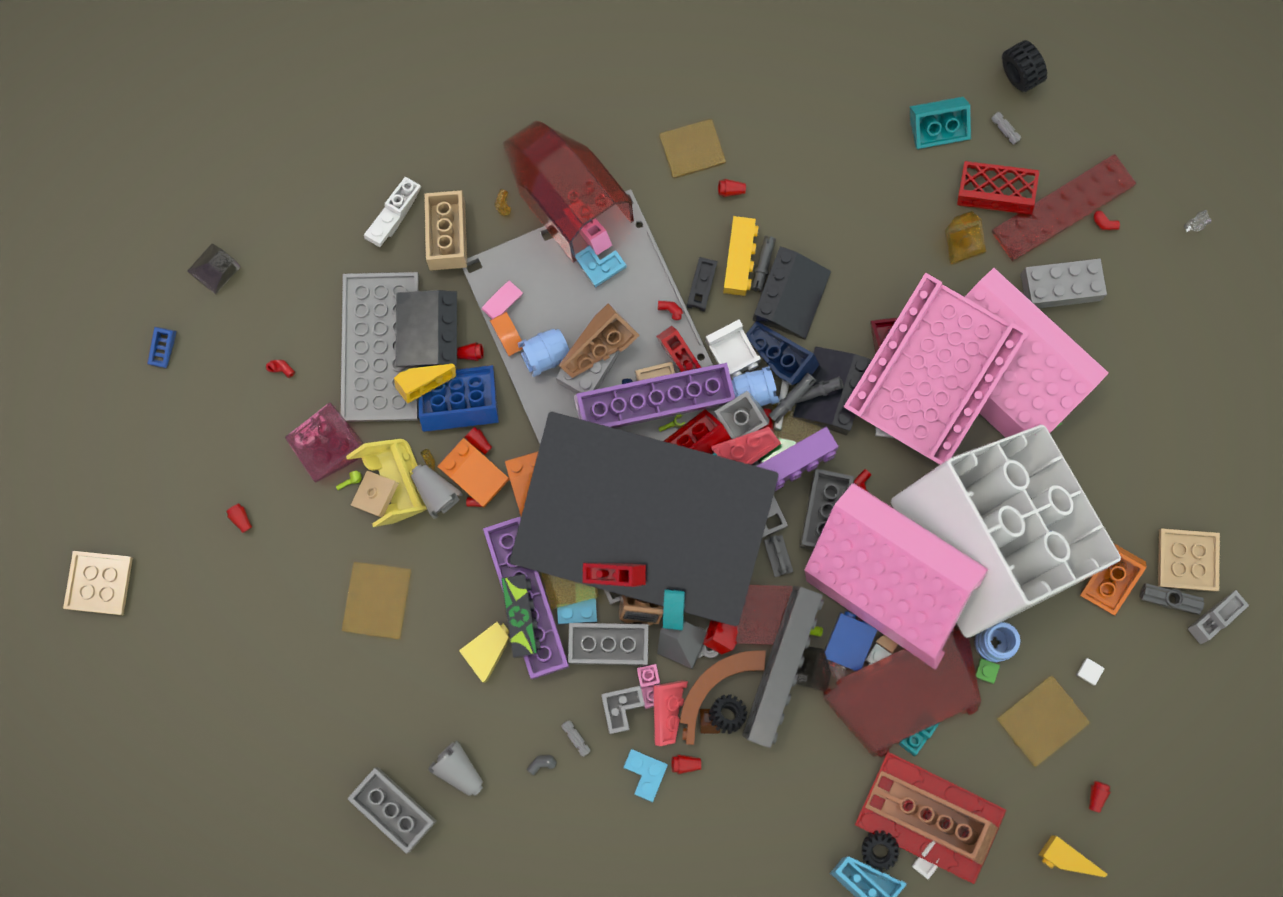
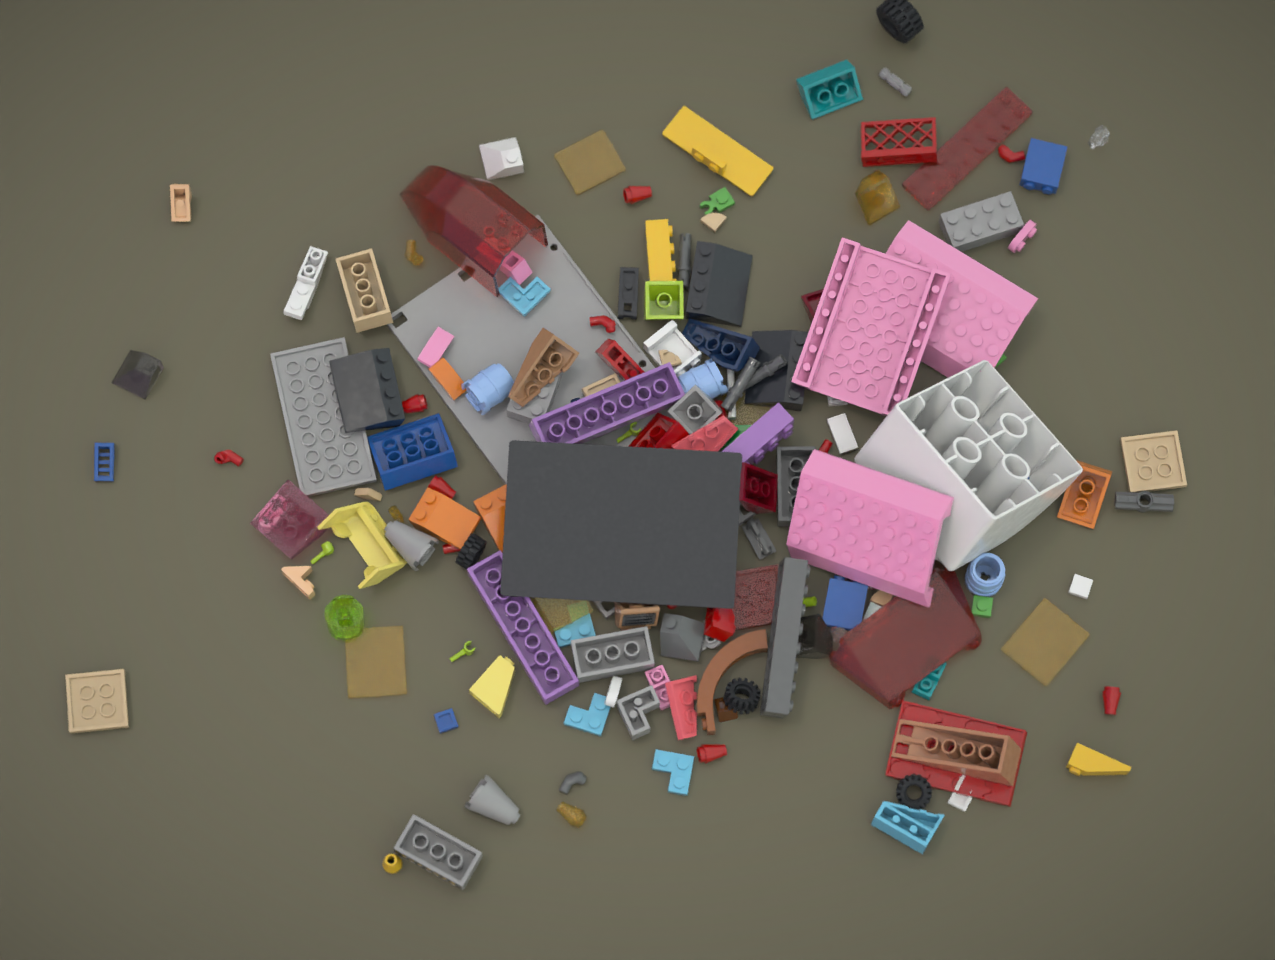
camera: 15 degrees left, 5 degrees down
(239, 517) = (222, 610): red cone -> none
(291, 108) = (180, 202): none -> light nougat slope
(318, 499) = (297, 575): none -> light nougat slope
(350, 809) = (394, 867): none -> yellow cone
(359, 560) = (342, 627): none -> clear neon green brick
(374, 494) = (351, 559): tan plate -> none
(406, 431) = (368, 493): none -> tan tile
(421, 380) = (373, 440): yellow slope -> none
(431, 674) = (446, 720): none -> blue tile
(462, 609) = (464, 651): none -> lime hand
(491, 511) = (471, 551): none -> black tyre
(519, 616) = (522, 642): black brick -> none
(534, 798) = (572, 814): none -> clear yellow cone
(576, 704) = (589, 721): none -> medium azure plate
(576, 738) = (600, 751): light grey axle -> none
(601, 682) = (613, 691): none -> white beam
(608, 128) = (501, 158): none -> white slope
(614, 574) = (604, 582): red slope -> none
(673, 609) = (669, 604): teal slope -> none
(728, 357) = (666, 357): none -> tan tile
(734, 298) = (663, 300): none -> lime slope
(788, 509) = (758, 489): none -> dark red slope
(800, 229) = (713, 221): none -> tan tile
(810, 211) = (719, 200): none -> bright green plate
(818, 162) = (717, 151): none -> yellow bracket
(882, 467) = (842, 434): none -> white tile
(1096, 311) = (1027, 231): none -> bright pink plate
(1136, 239) = (1043, 166): none -> blue brick
(1218, 617) = (1191, 510): light grey slope -> none

